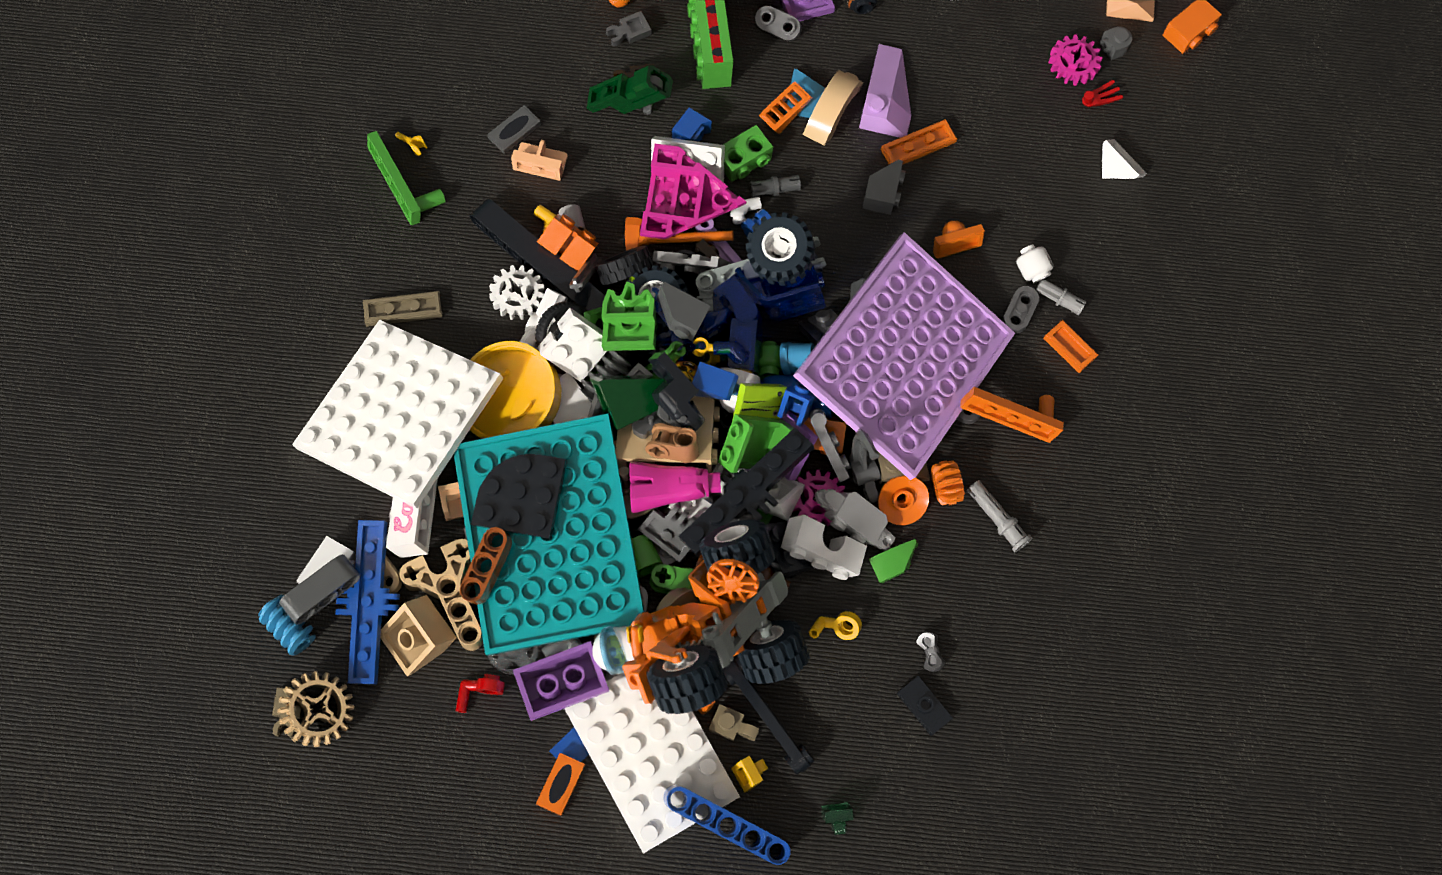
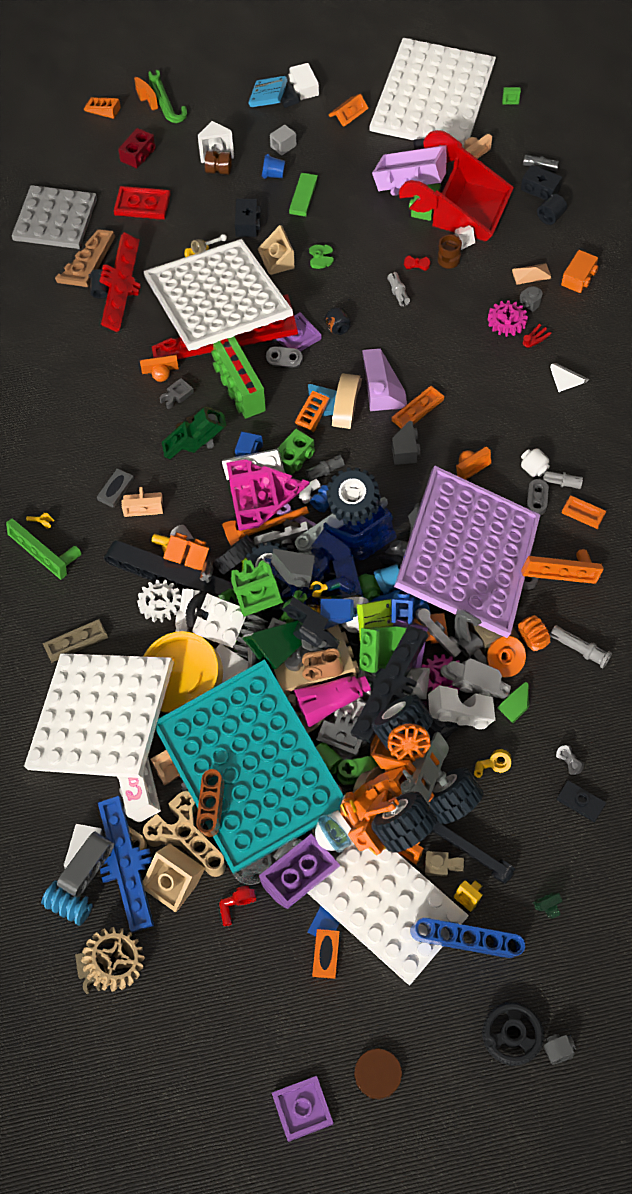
camera: 10 degrees left, 10 degrees down
(521, 495) = (219, 741): black plate -> none

